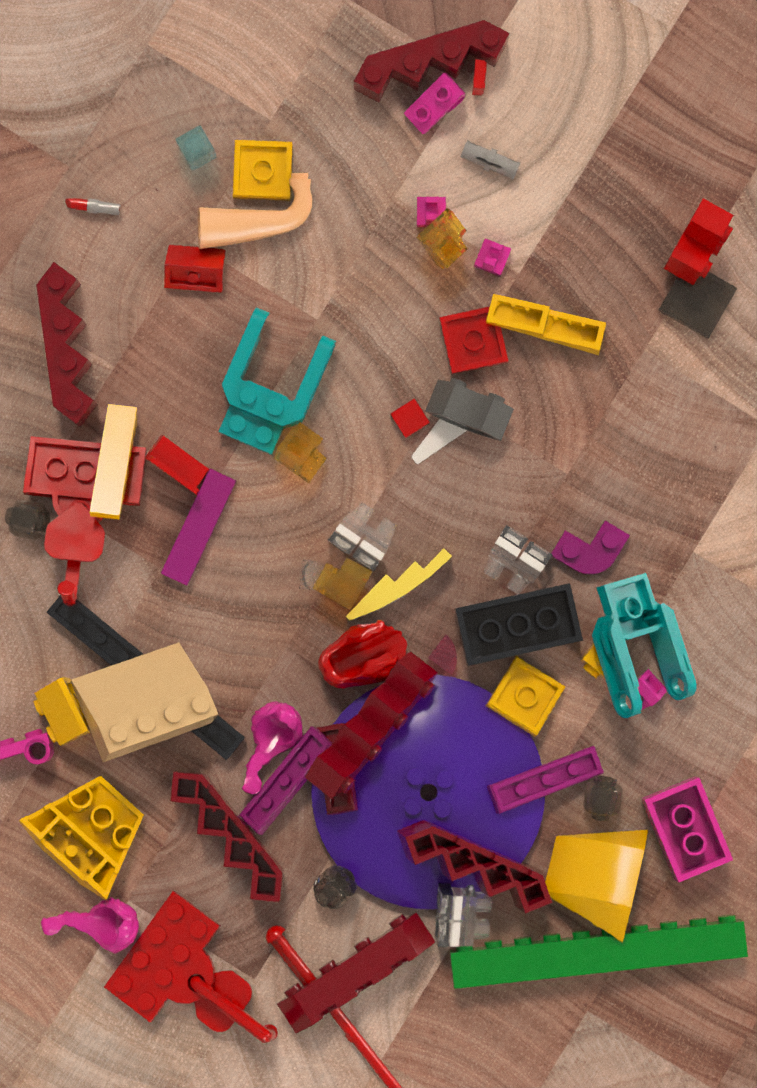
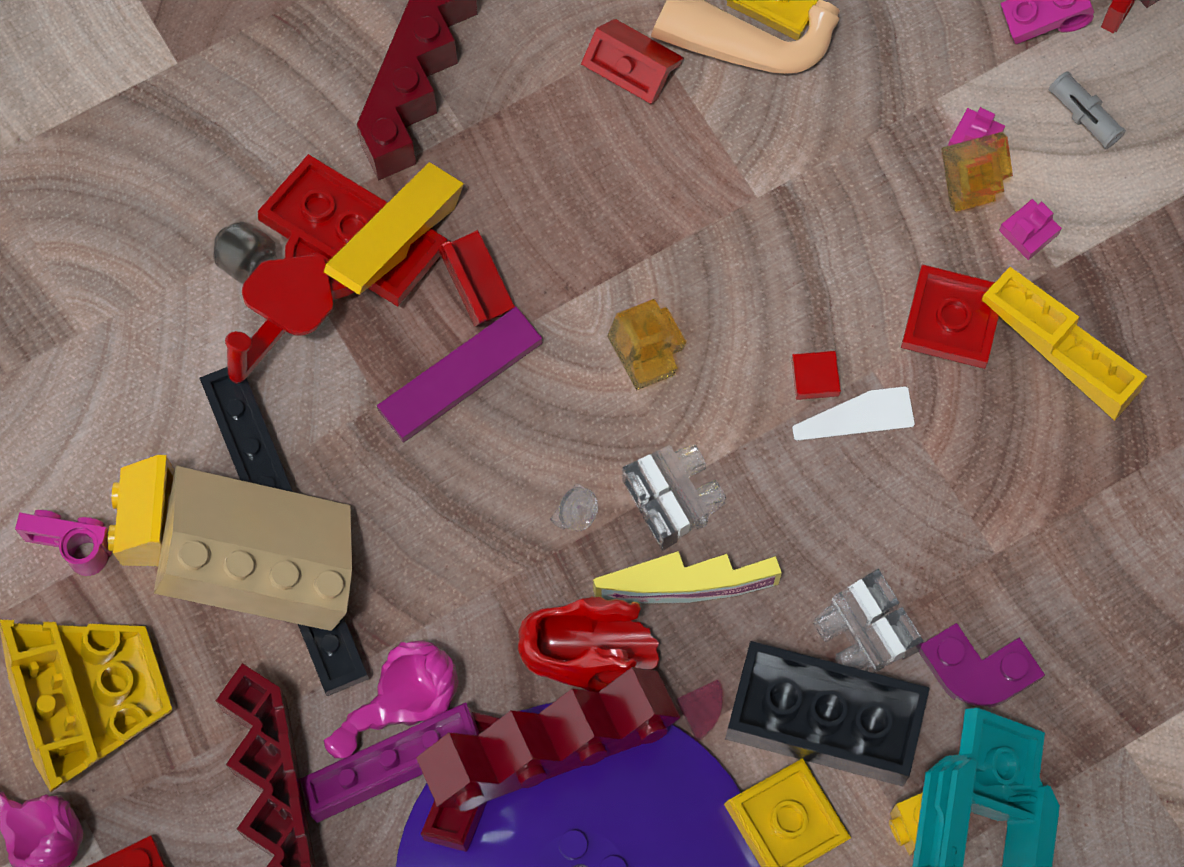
camera: 30 degrees right, 15 degrees down
(256, 412) = (623, 269): teal plate -> none
(343, 585) = (612, 538): clear yellow brick -> none
(469, 409) = (903, 399): dark grey brick -> none

